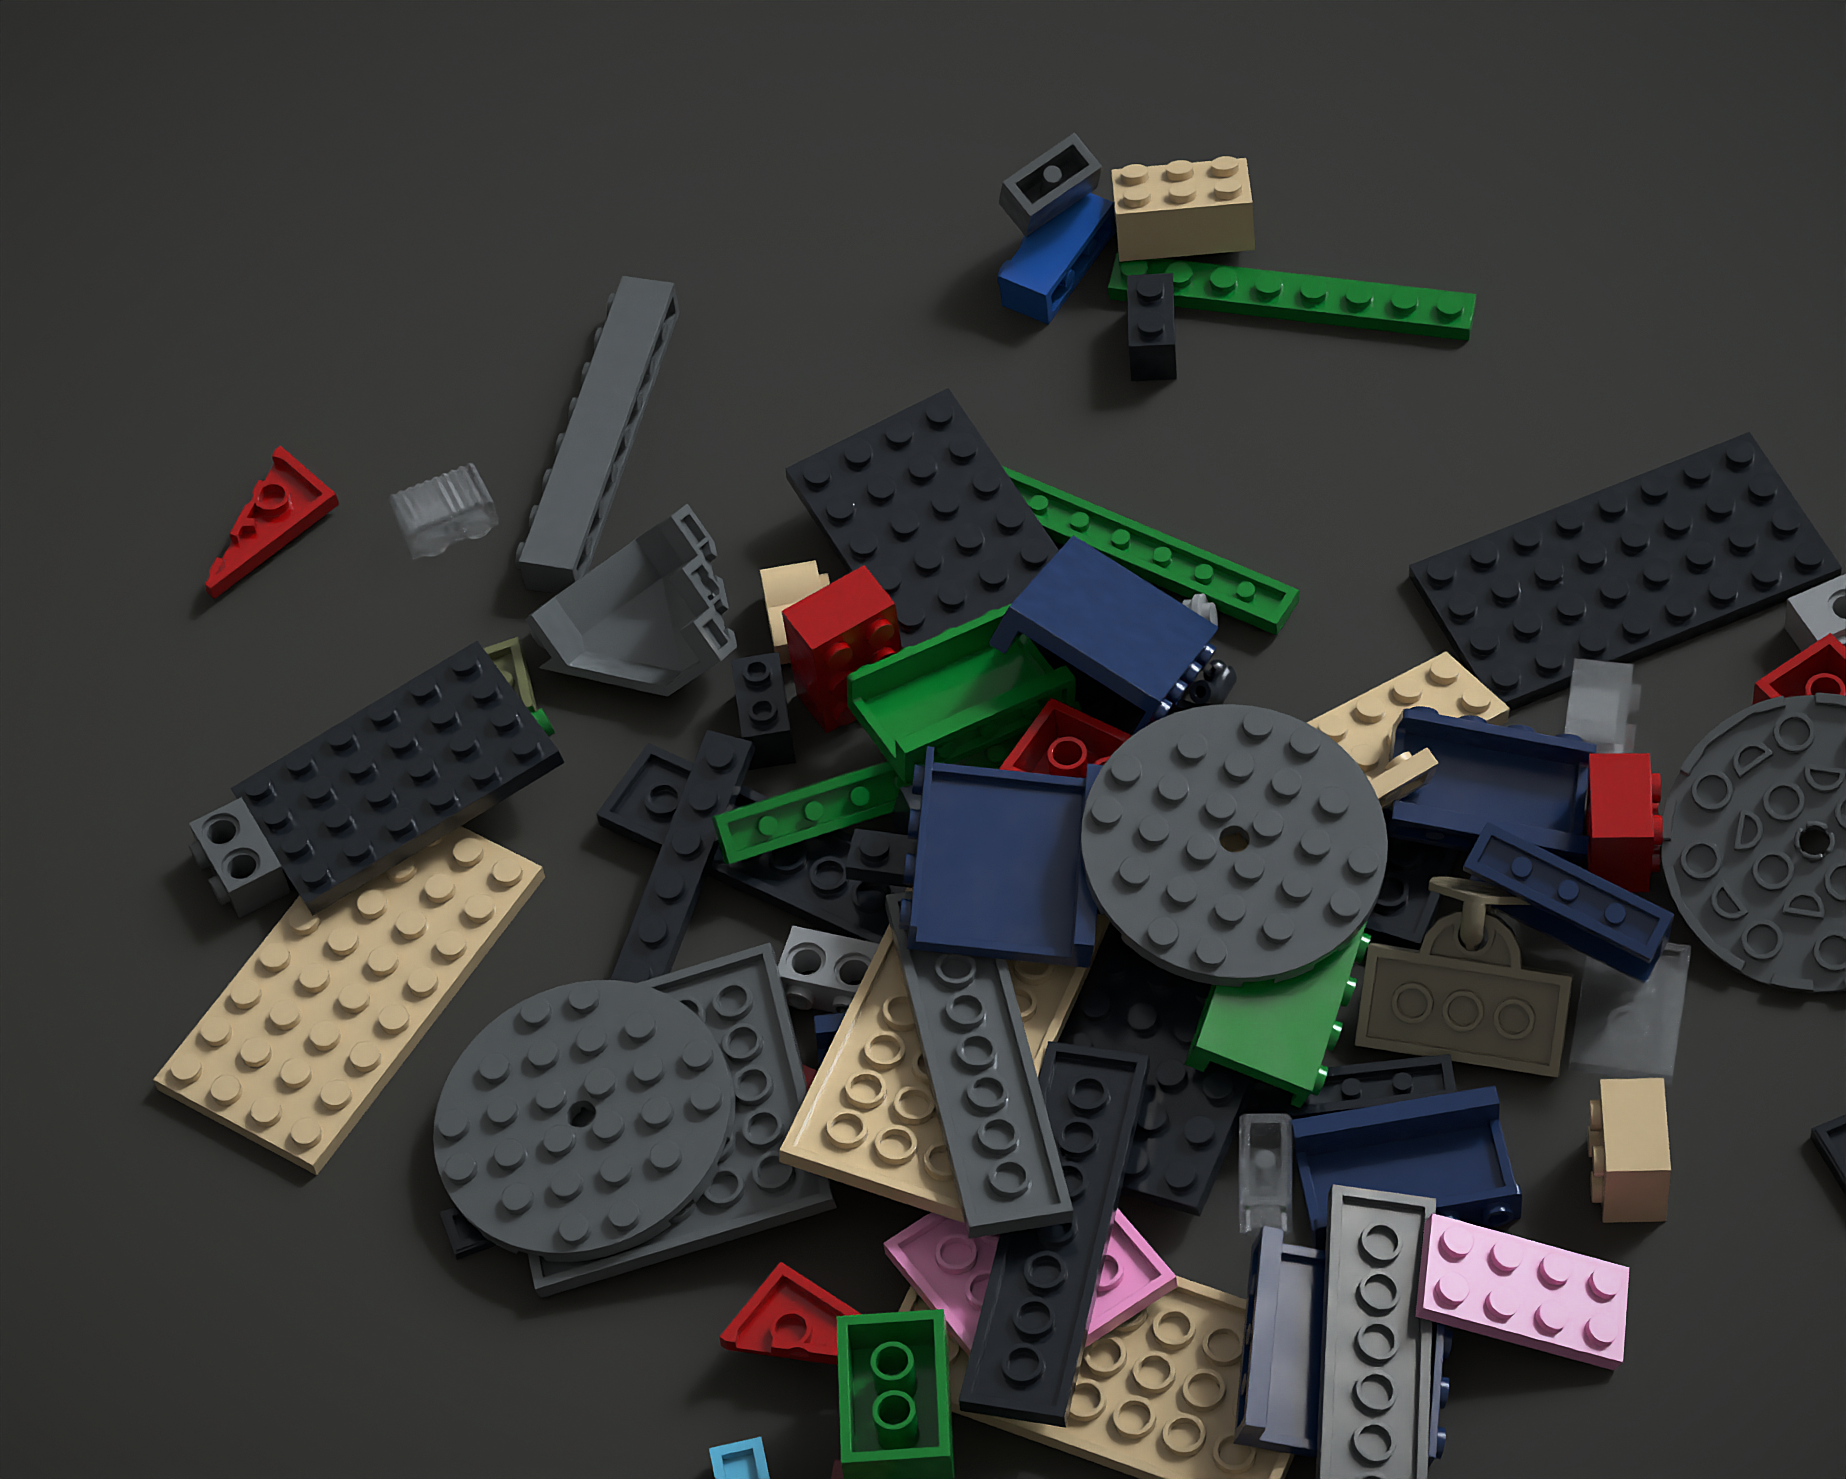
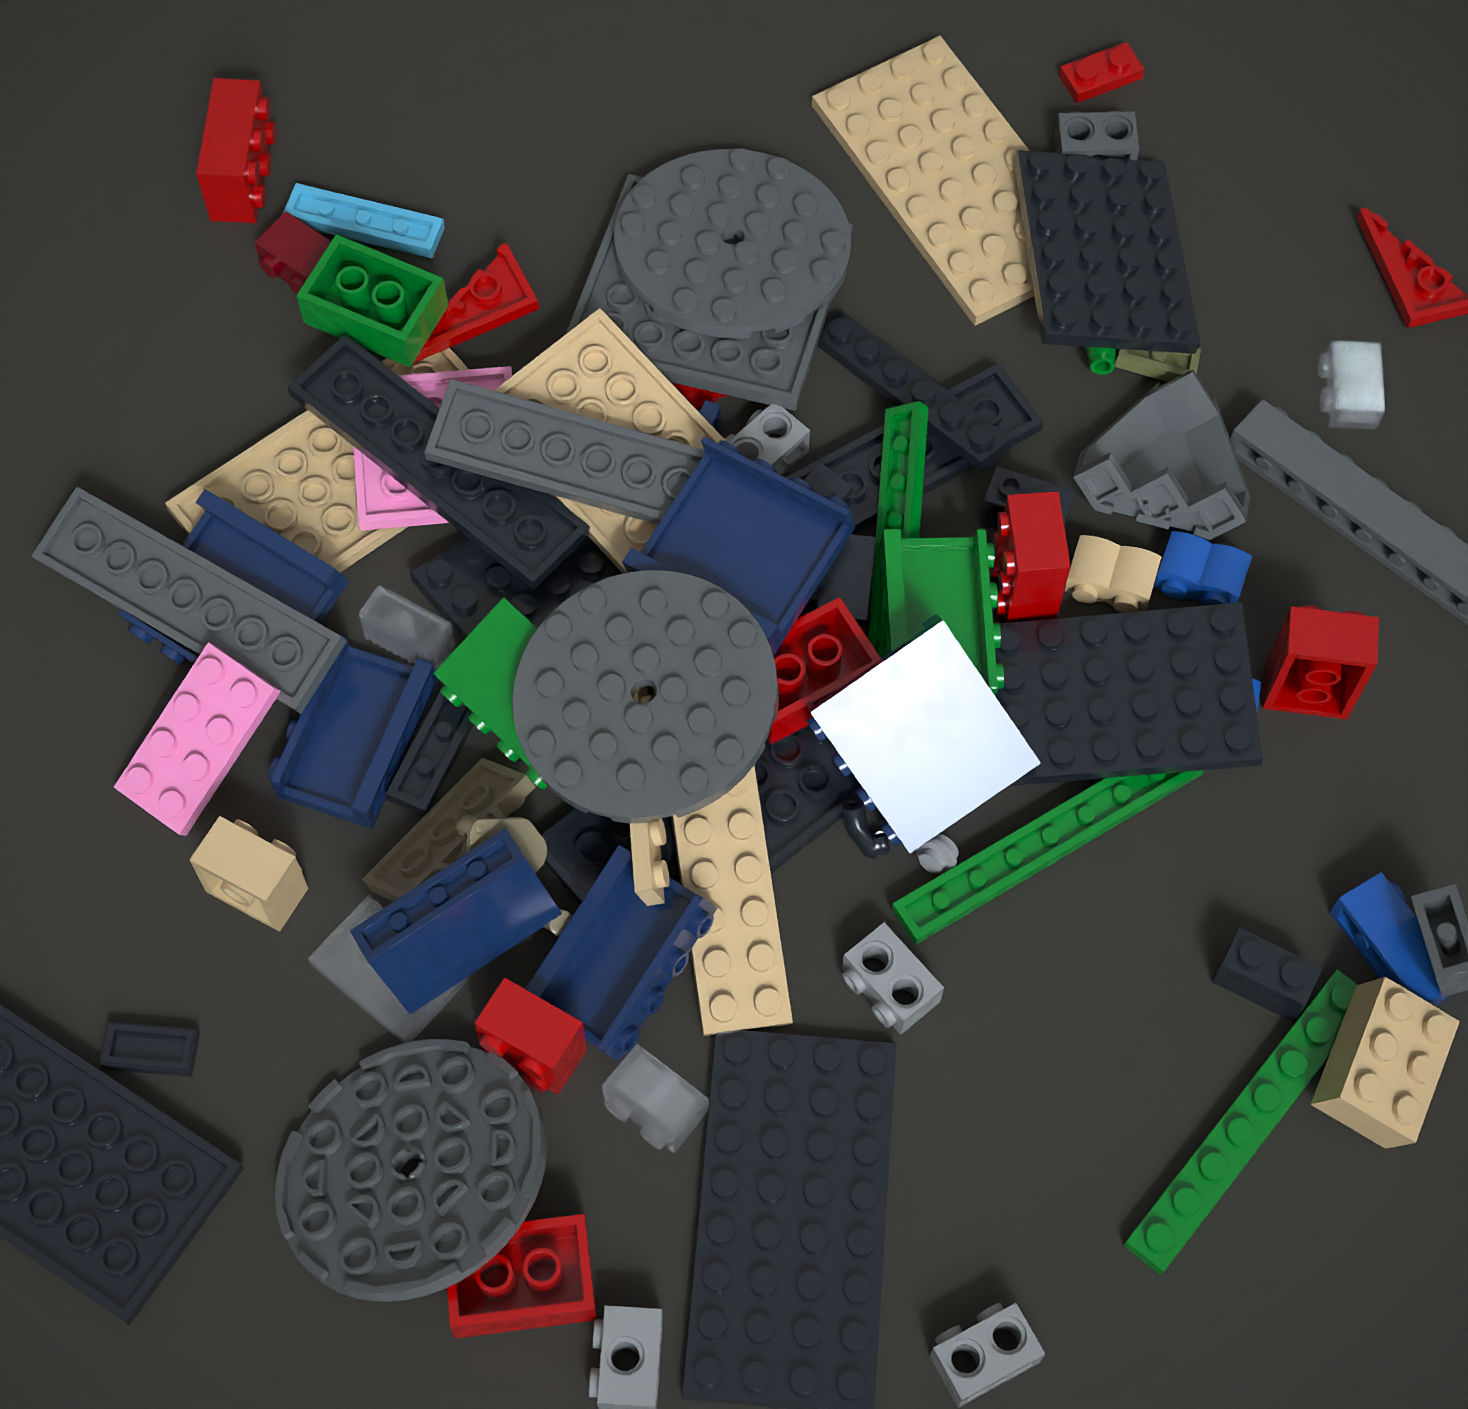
camera: 110 degrees right, 10 degrees up
(124, 906) = (1101, 72): none -> red plate
(748, 540) = (1201, 570): none -> blue brick
(812, 378) = (1320, 662): none -> red brick
(1345, 591) = (901, 973): none -> light grey brick
(1641, 376) = (992, 1363): none -> light grey brick

